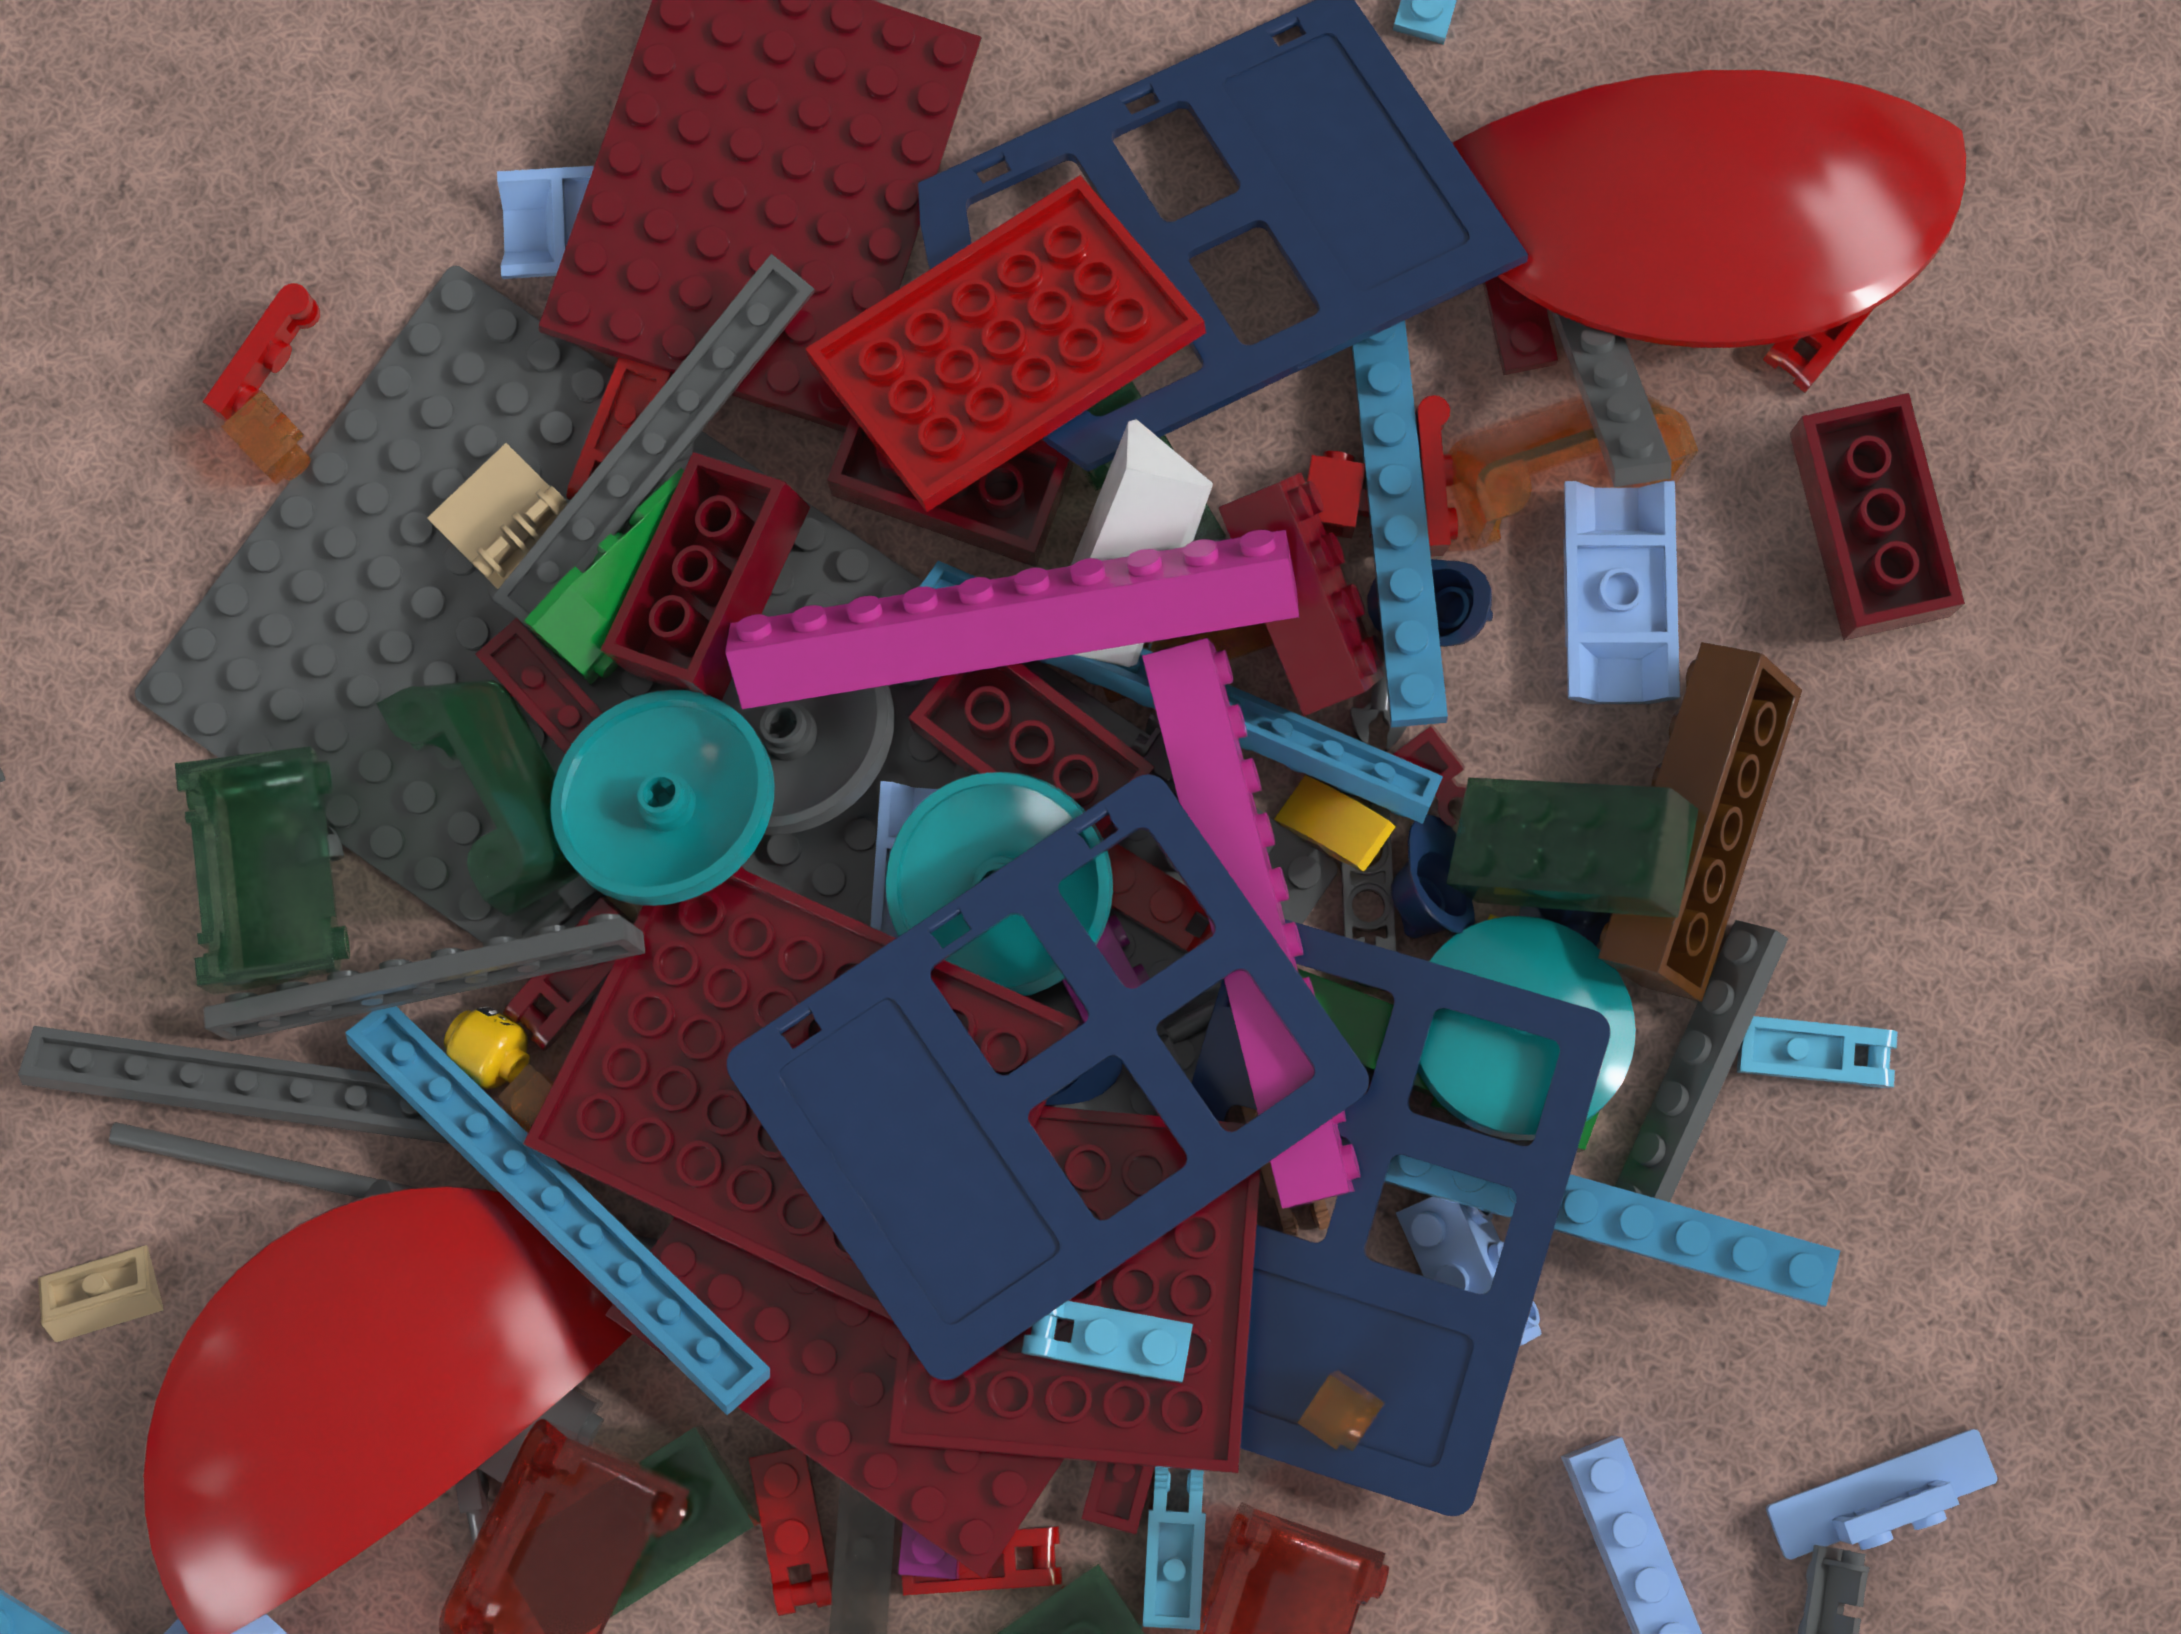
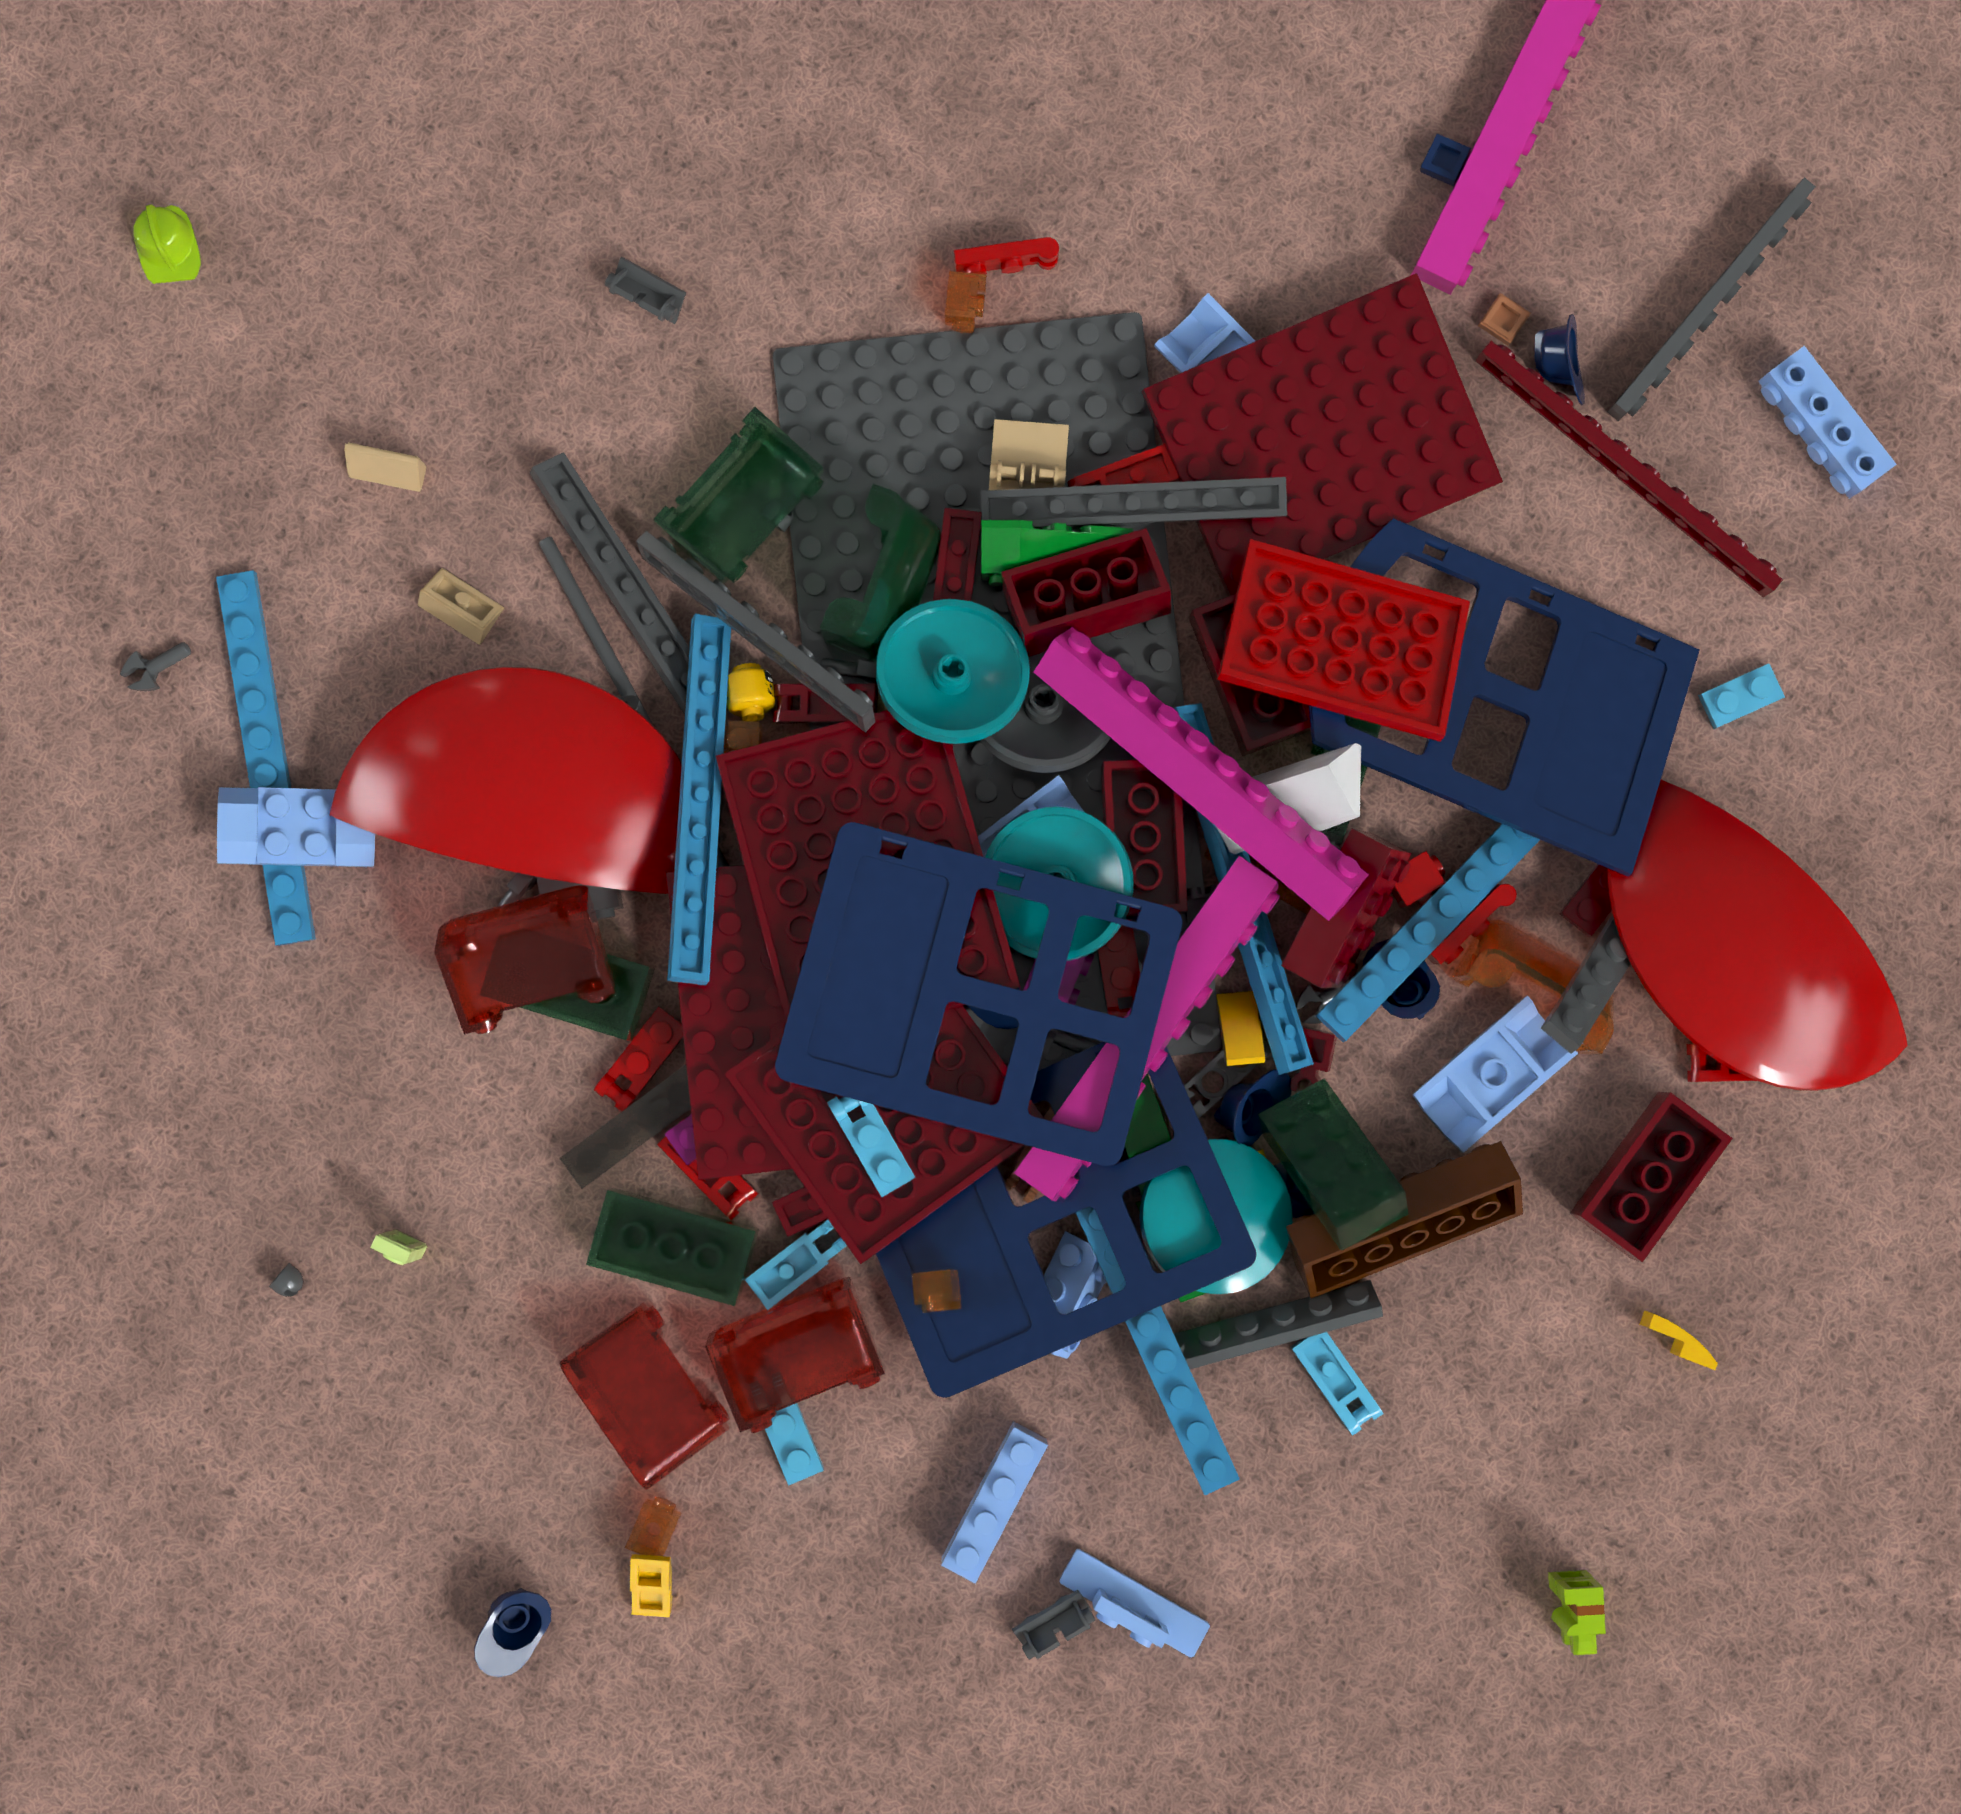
camera: 45 degrees right, 5 degrees up
(2091, 636) = (1684, 1343): none -> yellow slope

